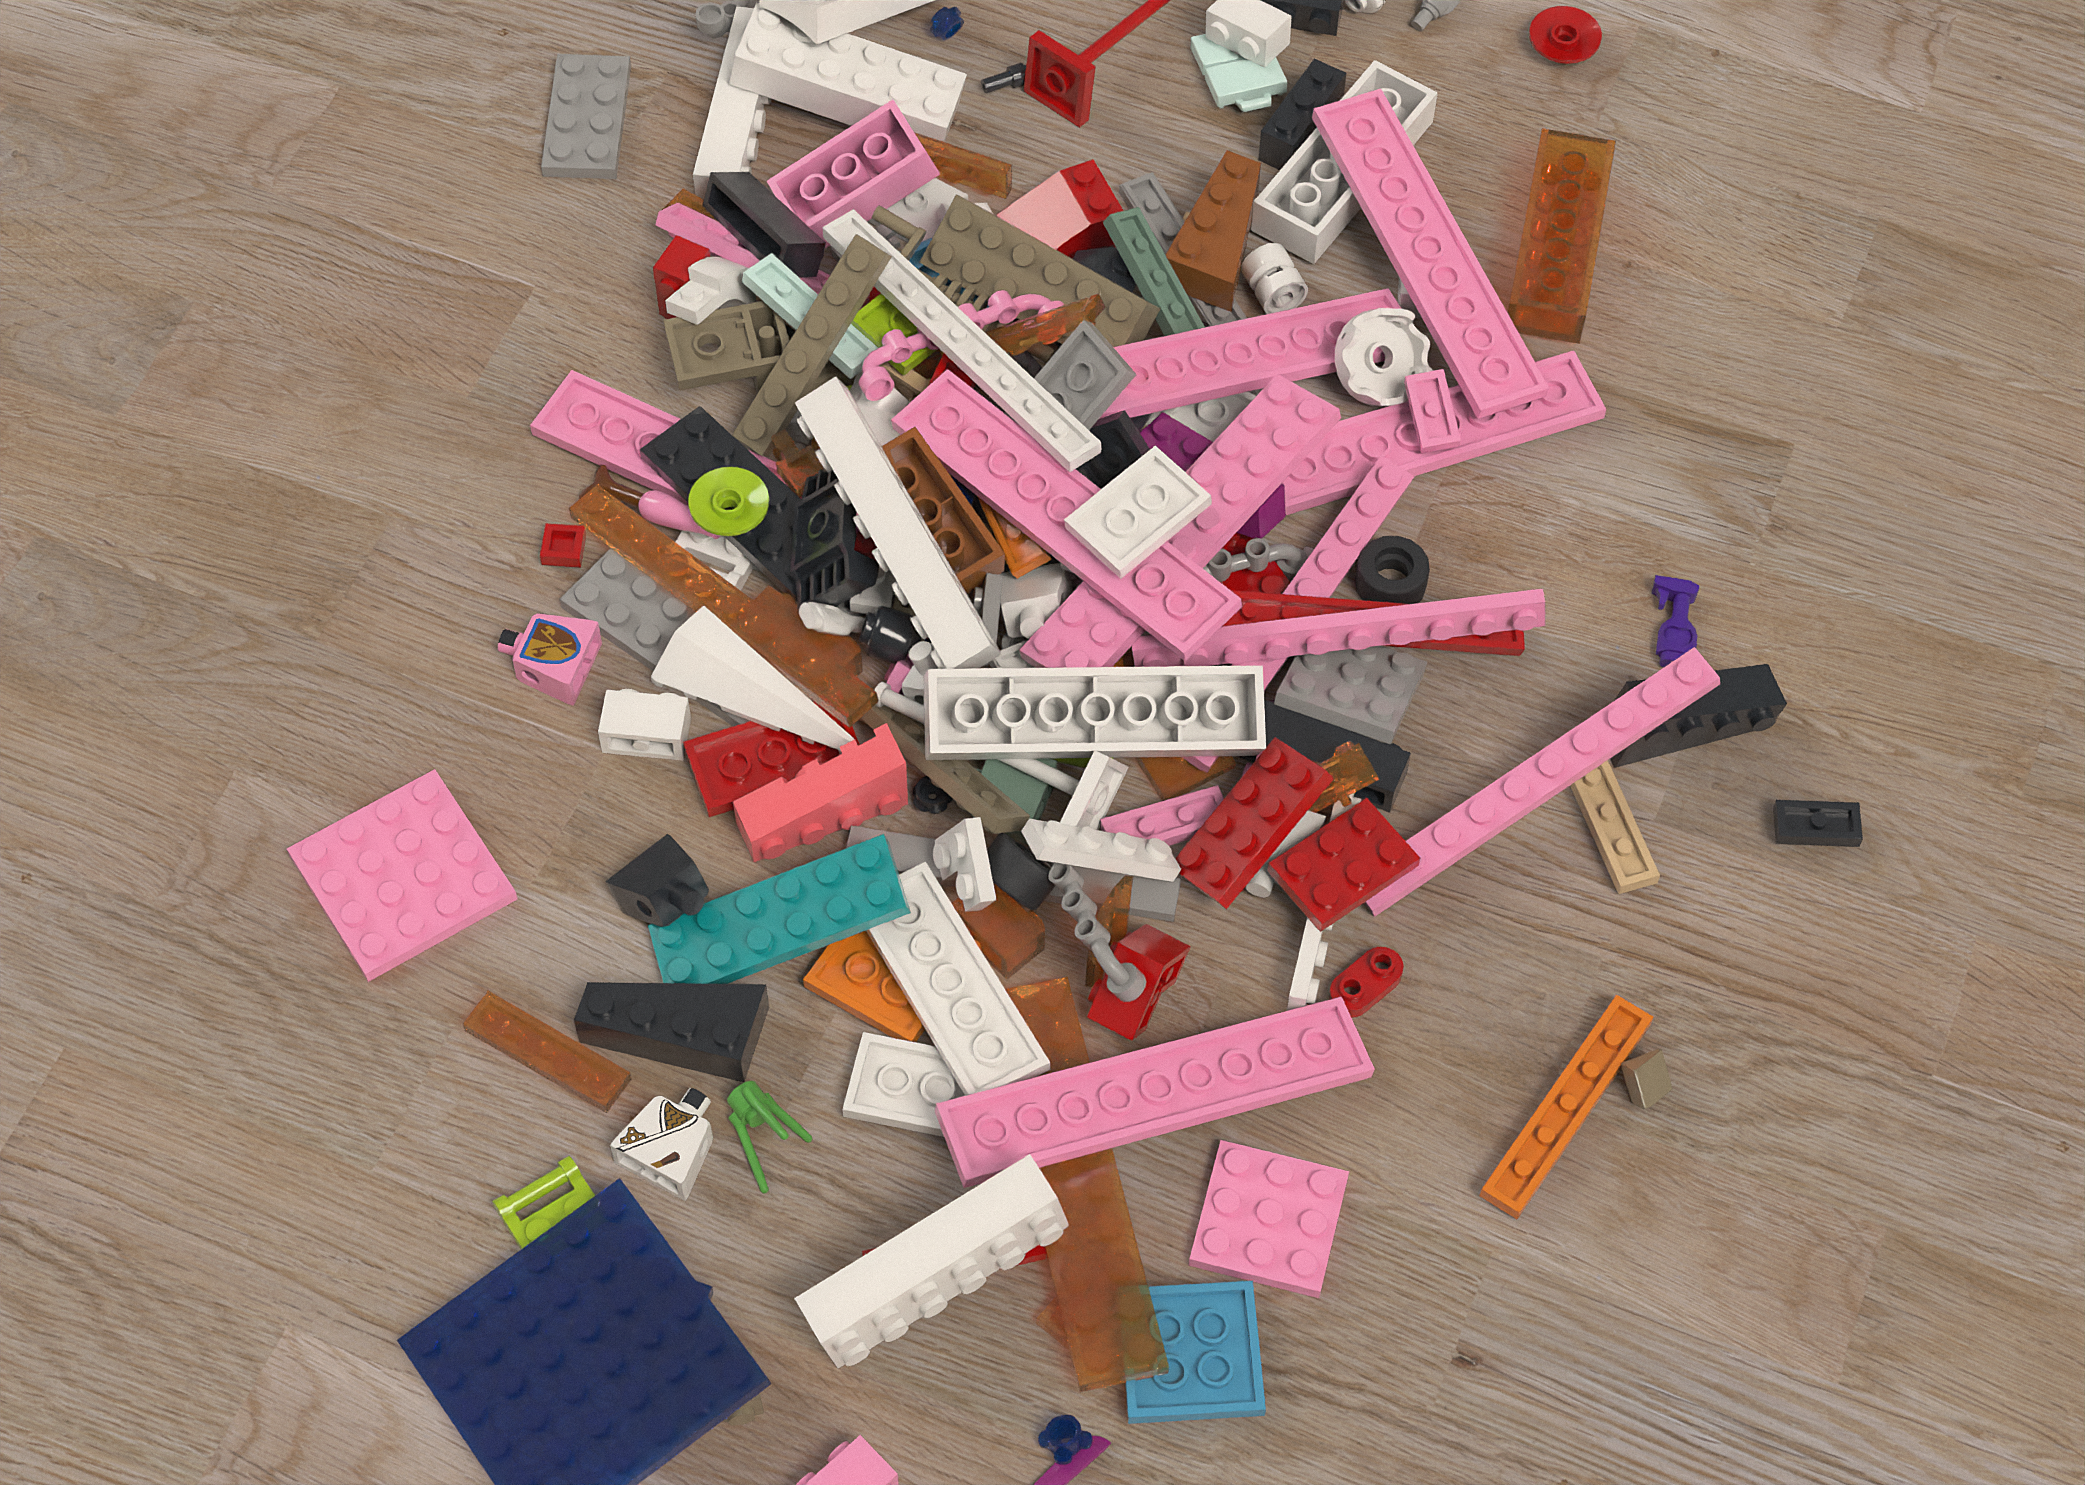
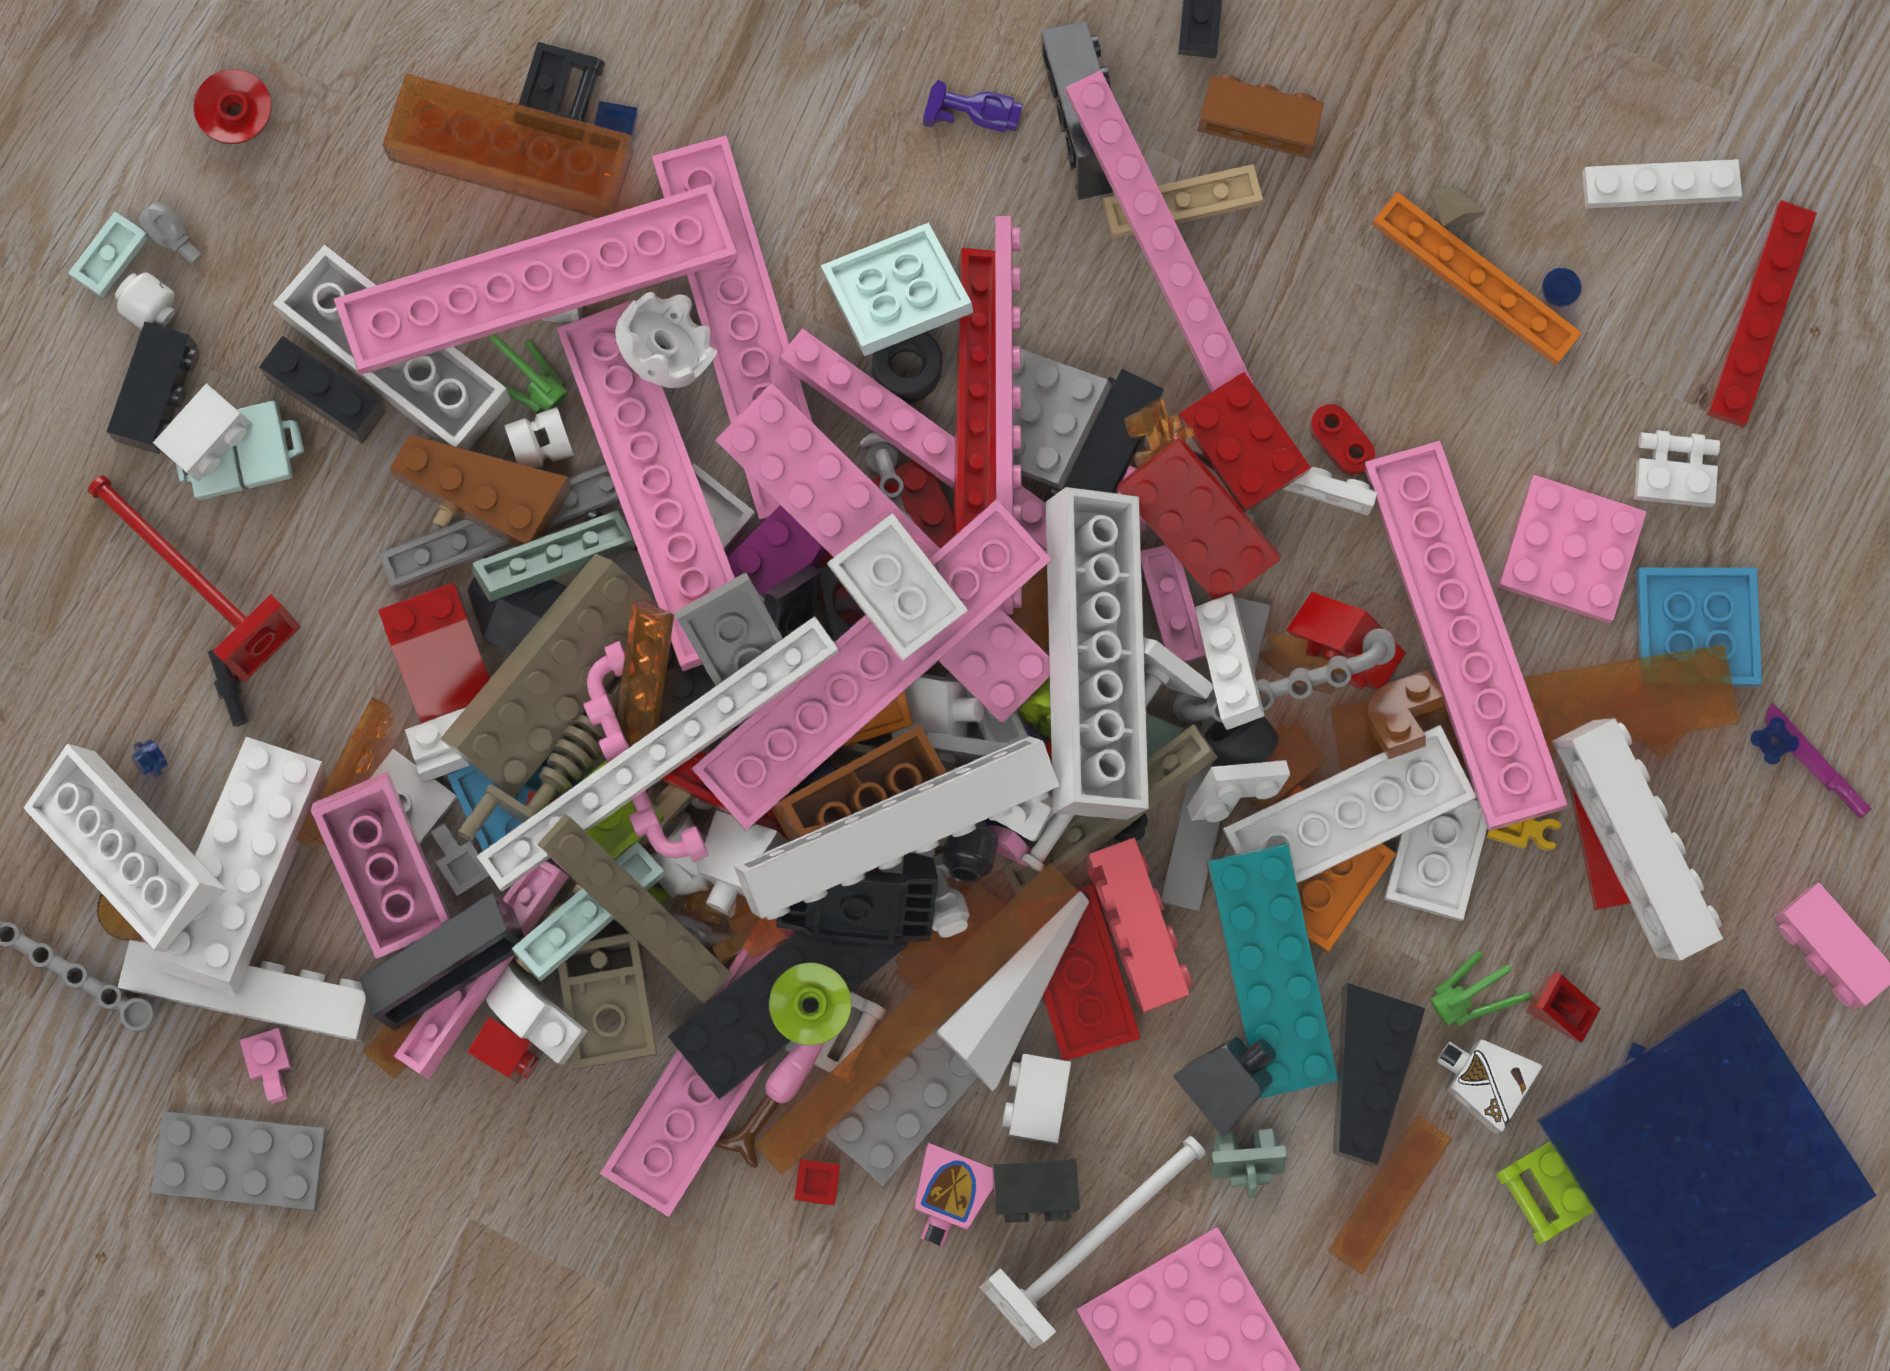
camera: 90 degrees left, 20 degrees up
(435, 705) = (1020, 1305): none -> white tile
(550, 717) = (1036, 1189): none -> pearl dark grey brick
(574, 914) = (1248, 1166): none -> sand green hips
(677, 127) = (266, 1059): none -> bright pink plate
(750, 1214) = (1563, 1007): none -> red slope
(943, 1170) = (1519, 833): none -> yellow plate
(1060, 1018) = (1394, 708): none -> dark orange plate
(1325, 281) = (545, 391): none -> bright green plant
(1360, 1328) = (1677, 481): none -> white plate
(1432, 411) = (728, 300): bright pink plate -> none
(1465, 549) = (897, 289): none -> light aqua plate
(1572, 1196) = (1561, 287): none -> clear blue plate
(1576, 1419) = (1761, 314): none -> red plate
(1604, 328) = (616, 117): none -> clear blue tile
(1634, 269) = (550, 76): none -> black plate
(1714, 1305) = (1662, 183): none -> white plate
(1717, 883) = (1260, 115): none -> dark orange brick

